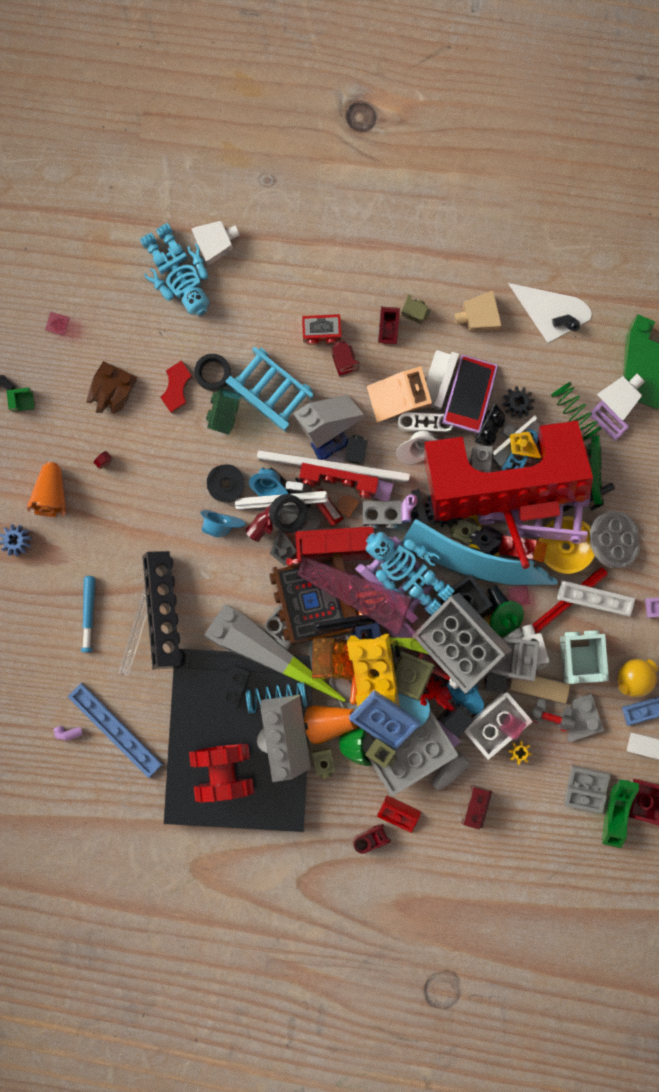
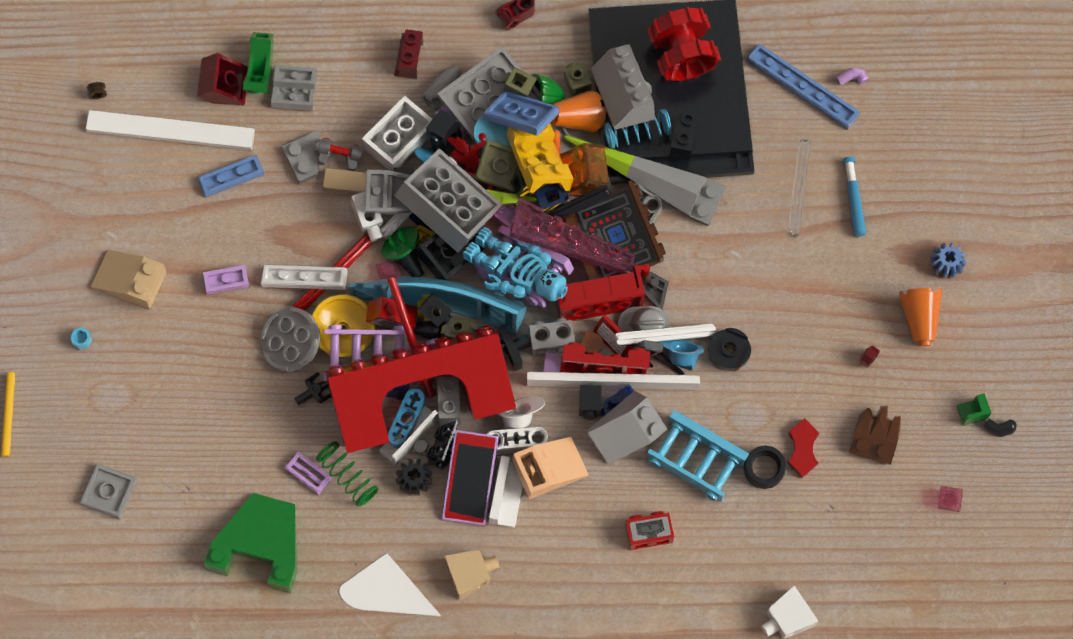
camera: 170 degrees right, 15 degrees down
(156, 619) = (795, 252): black brick -> none
(193, 298) = (800, 544): medium azure piece -> none
(219, 524) = (727, 305): dark azure piece -> none
(223, 411) = (745, 421): clear green brick -> none
(260, 525) = (681, 308): dark red piece -> none
(299, 521) = (661, 324): black tyre -> none
(344, 358) = (618, 495): dark red window -> none
(388, 325) = (573, 542): dark red slope -> none
(399, 814) = (488, 40): red slope -> none
(407, 506) = (525, 342): lavender arm -> none
(415, 310) = (544, 565): olive brick -> none
(512, 726) = (383, 127): clear pink plate -> none
(522, 756) = (370, 107): yellow gear -> none
(523, 444) = (403, 423): yellow piece -> none
(539, 511) = (379, 346): red slope -> none
(567, 321) = (366, 577): black arm -> none
(586, 662) = (312, 211): light aqua container -> none
(595, 462) = (322, 414): green wing -> none
(622, 395) = (297, 497): white torso -> none
(637, 677) = (251, 201): yellow brick -> none

